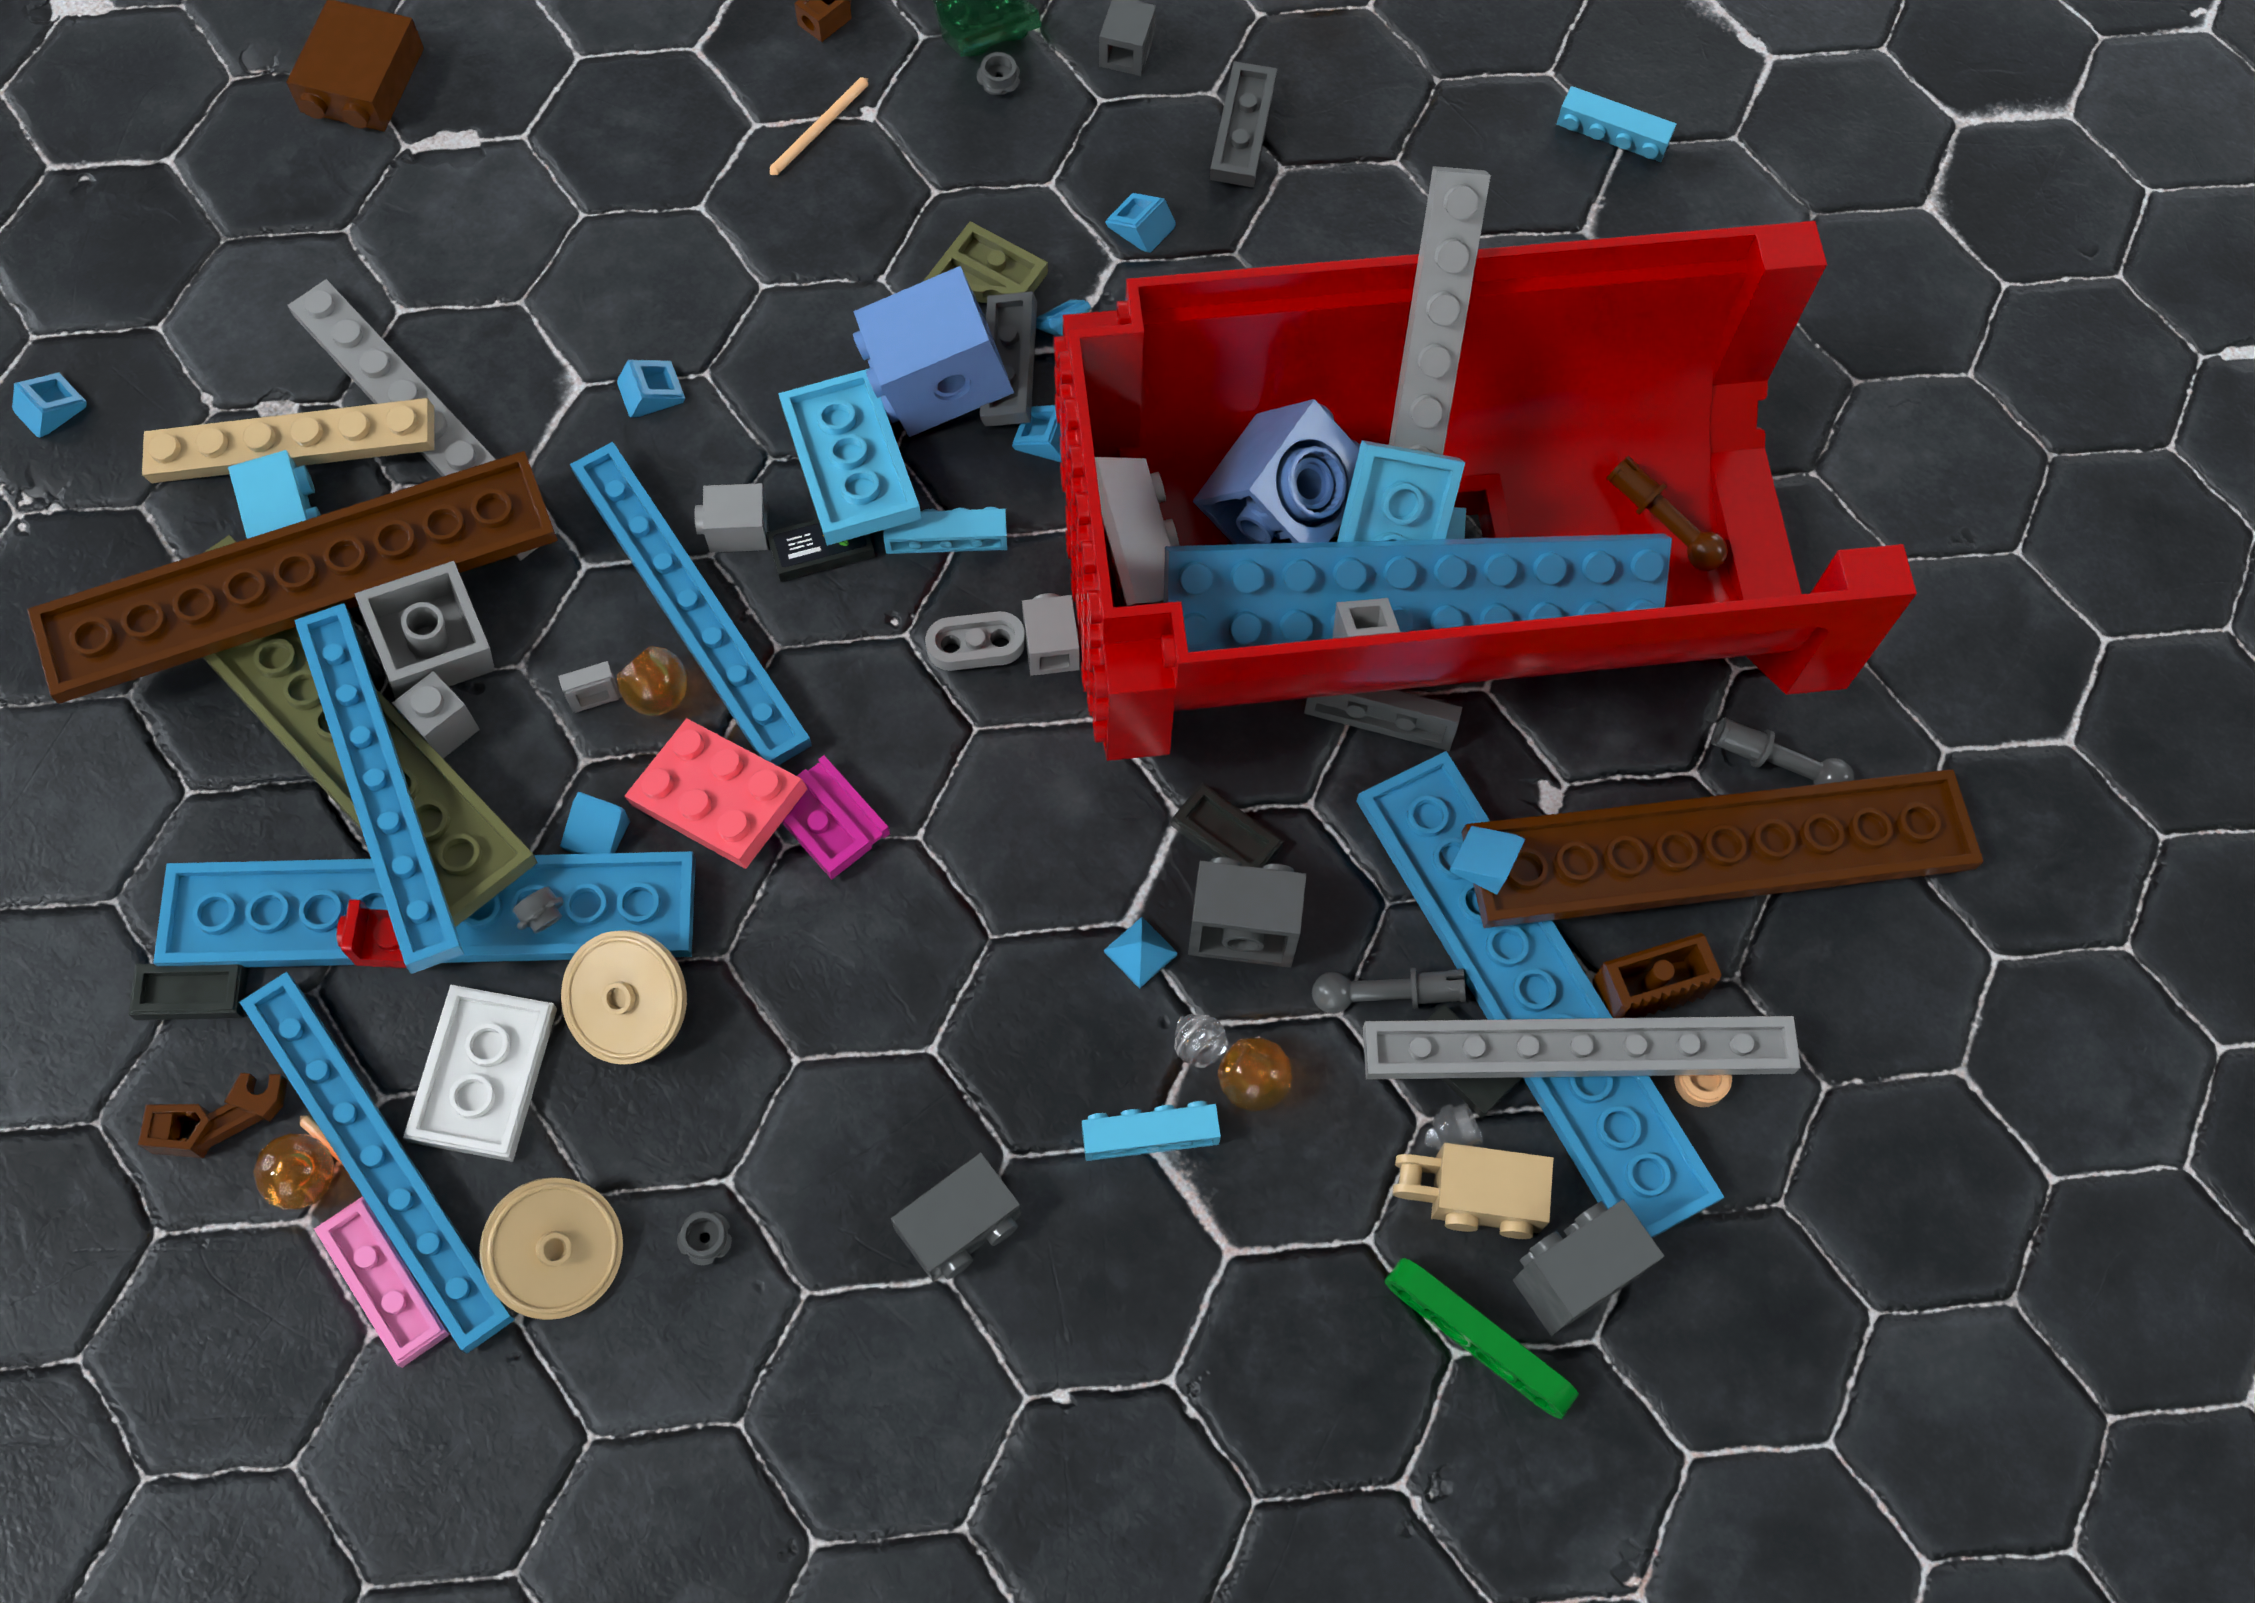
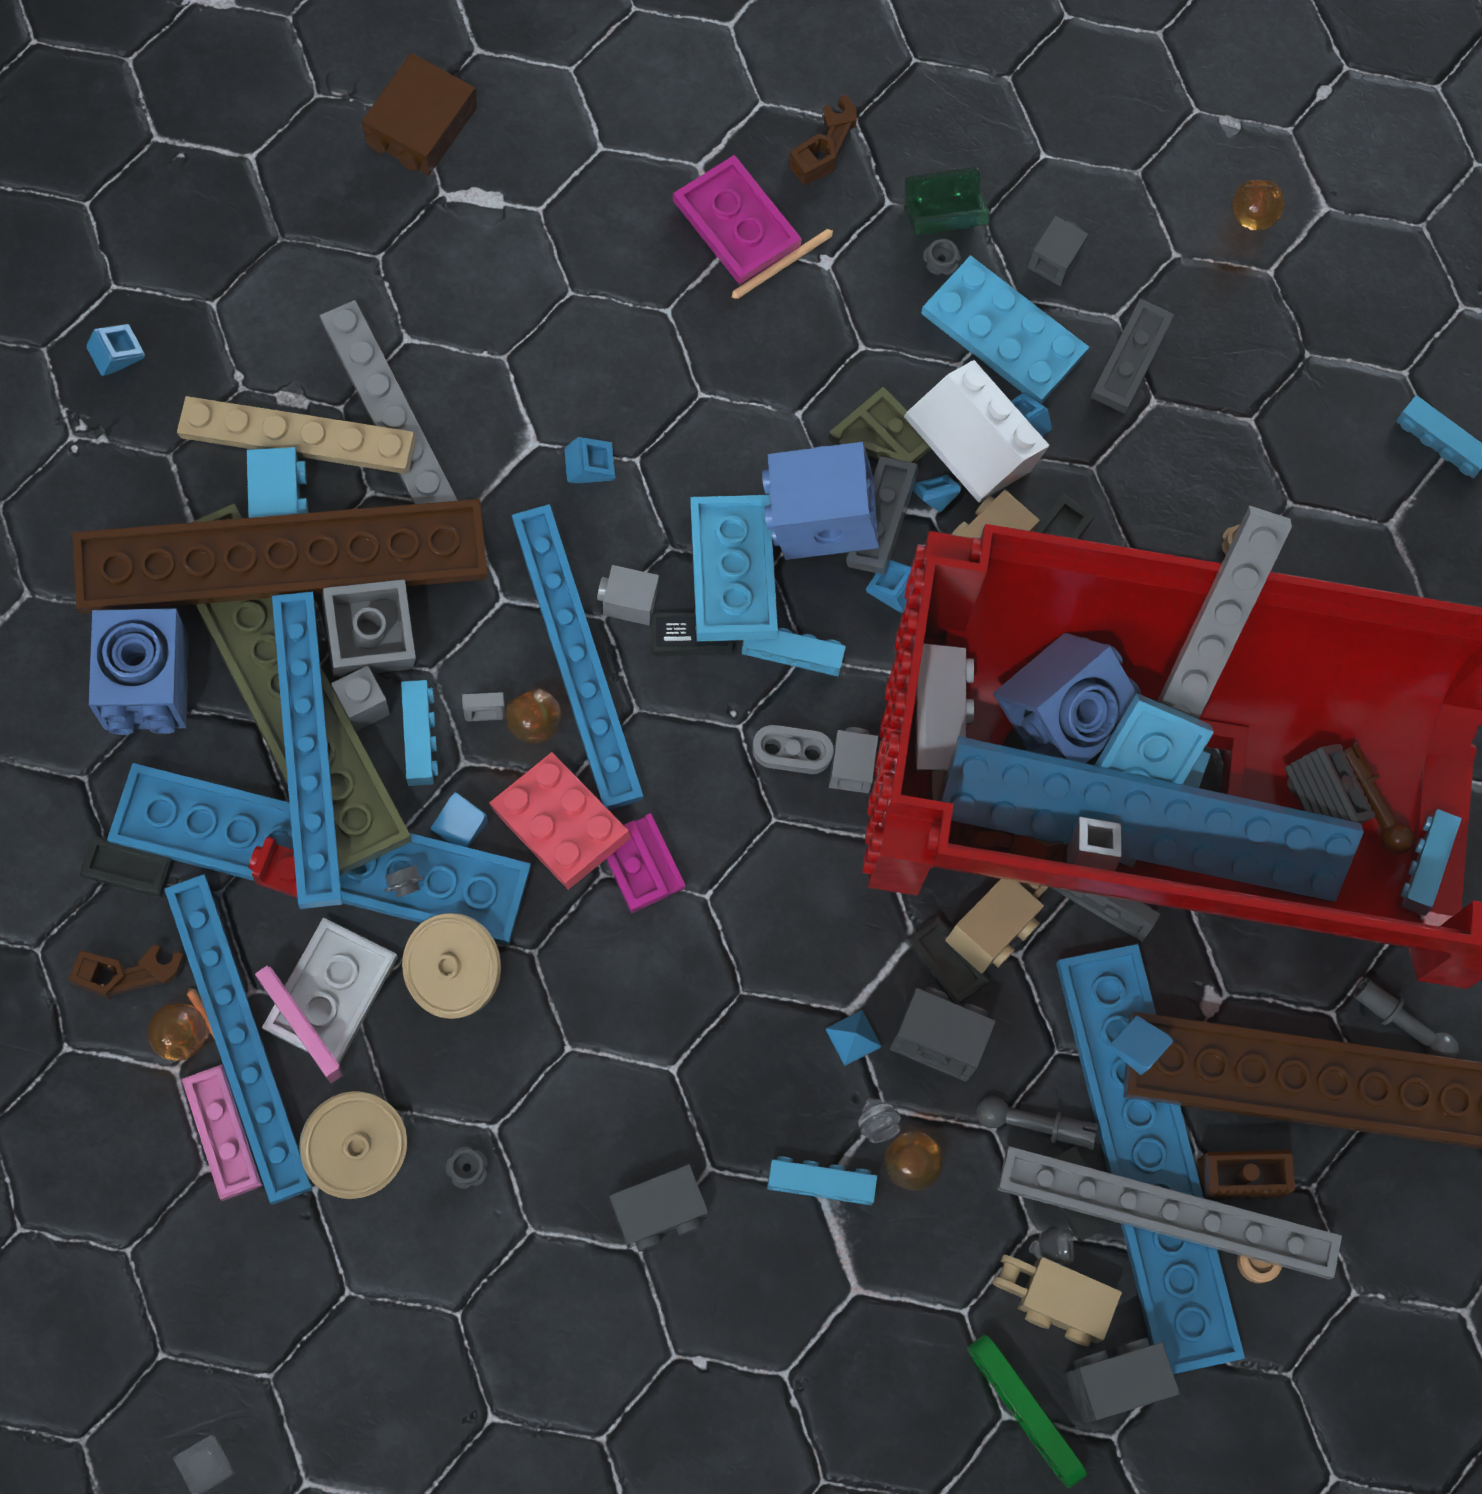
camera: 10 degrees right, 5 degrees up
(148, 750) = (139, 670): none -> medium blue brick
(447, 1117) = (299, 1024): none -> bright pink tile
(516, 738) = (417, 733): none -> medium azure piece
(753, 90) = (737, 219): none -> dark pink plate
(1089, 237) = (977, 431): none -> white slope
(1091, 133) = (1005, 330): none -> medium azure plate
(1273, 767) = (996, 922): none -> tan brick
(1610, 504) = (1328, 785): none -> dark grey brick
(1754, 552) = (1430, 863): none -> medium azure piece

